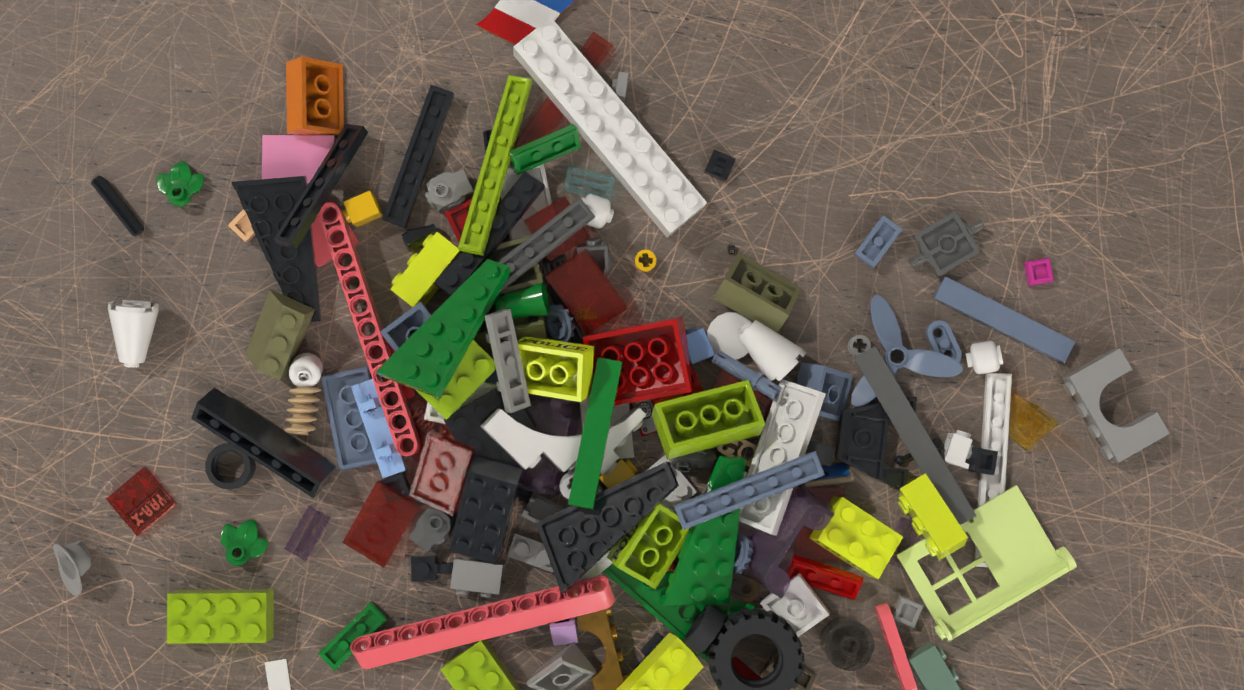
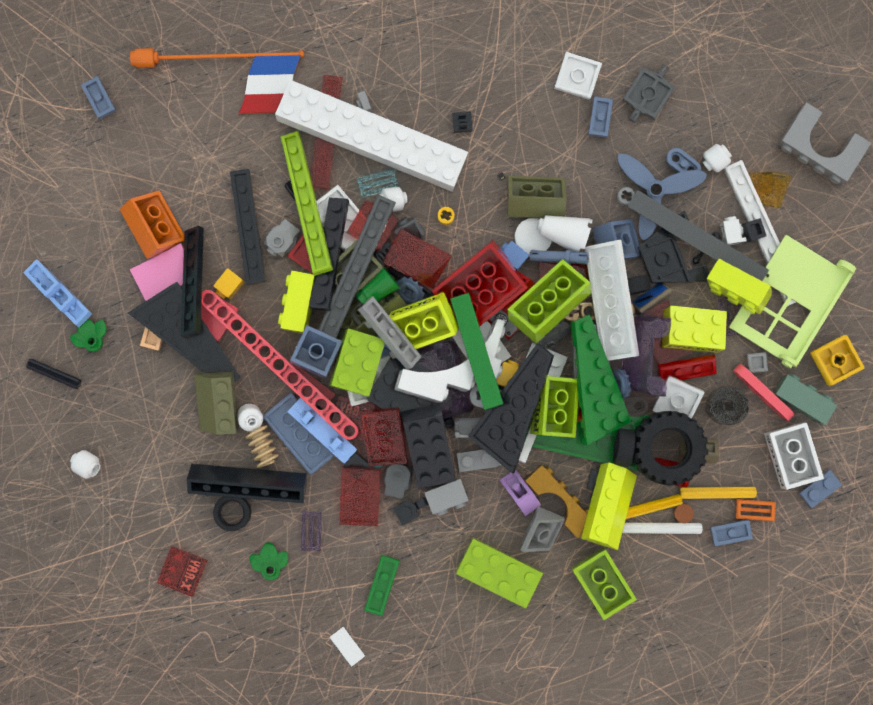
camera: 30 degrees left, 0 degrees up
(73, 562) = (158, 640): light grey piece -> none
(96, 325) = (85, 464): none -> white head
(132, 329) = (112, 454): white cone -> none
(169, 119) = (57, 293): none -> light blue slope
(220, 616) = (281, 620): lime brick -> none
(415, 237) = (278, 283): black cone -> none
(438, 346) = (337, 346): green wing -> none
(482, 622) = (467, 525): coral beam -> none
(545, 149) = (334, 174): green tile -> none
(749, 490) = (604, 333): sand blue tile -> none
(877, 182) = (578, 75): none -> white tile
(1004, 319) = (716, 125): sand blue tile -> none
(1010, 669) = (848, 364): none -> yellow brick
(1038, 271) = (722, 79): dark pink tile -> none

